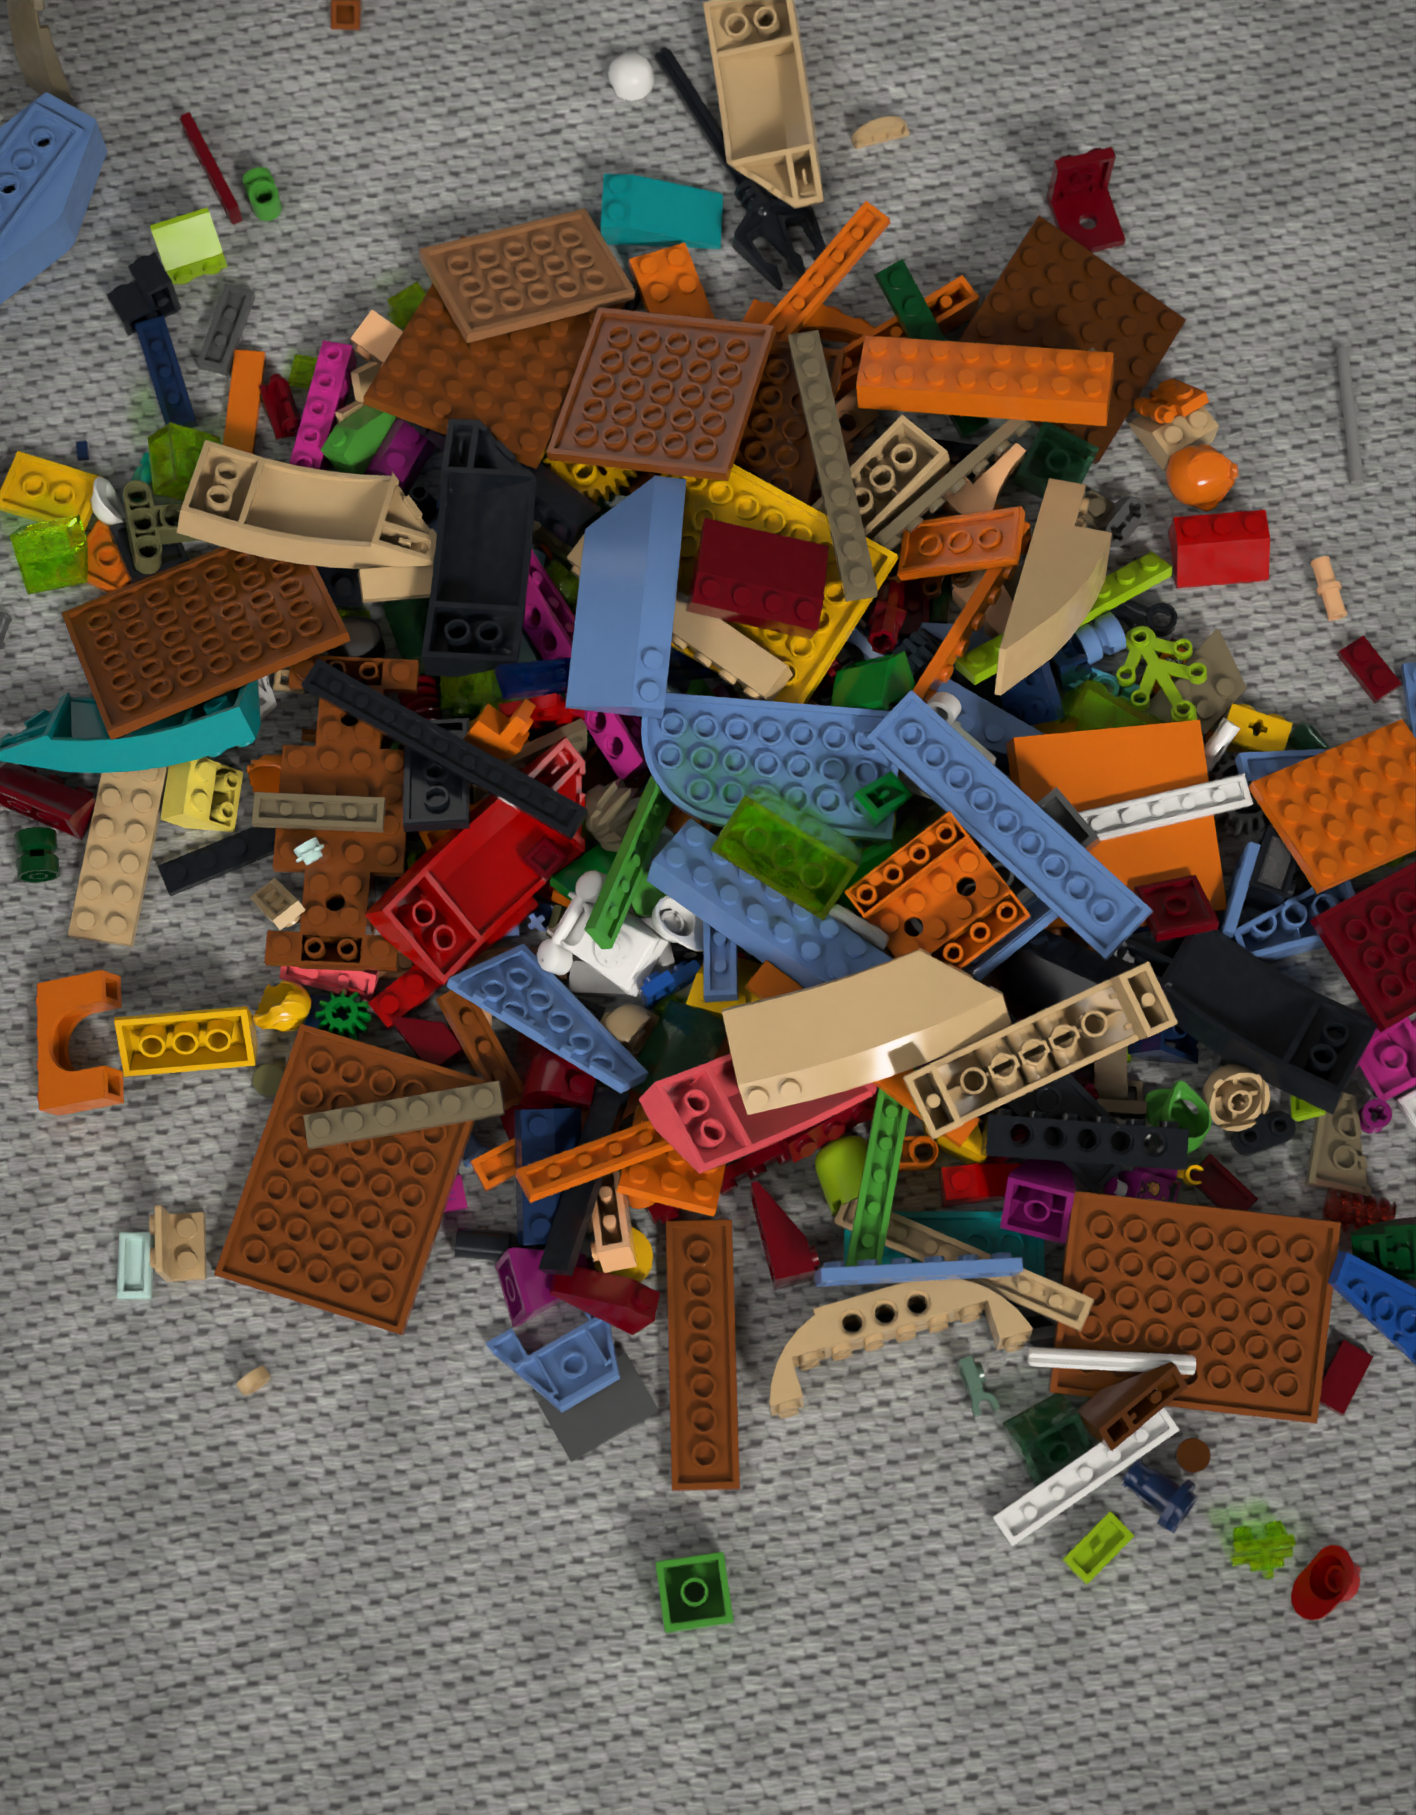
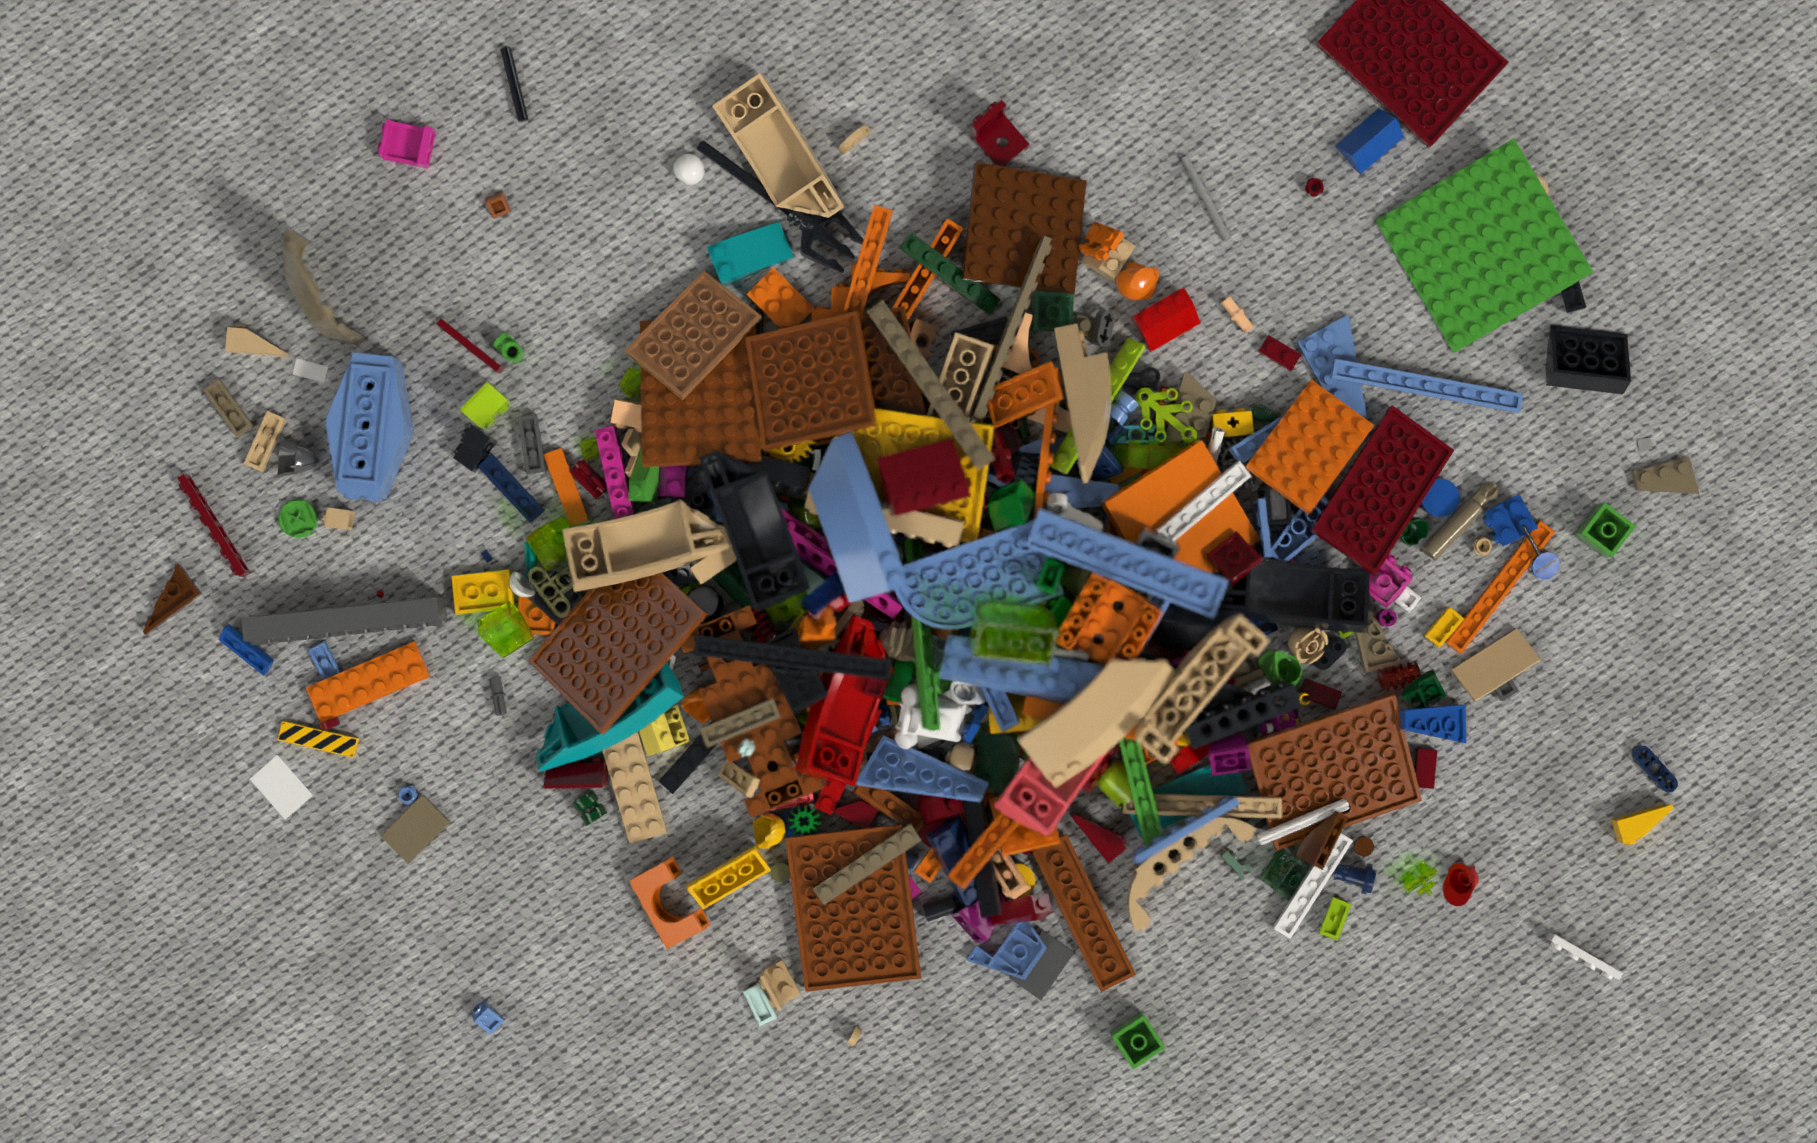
camera: 25 degrees left, 15 degrees up
(985, 380) = (993, 289): orange brick -> none

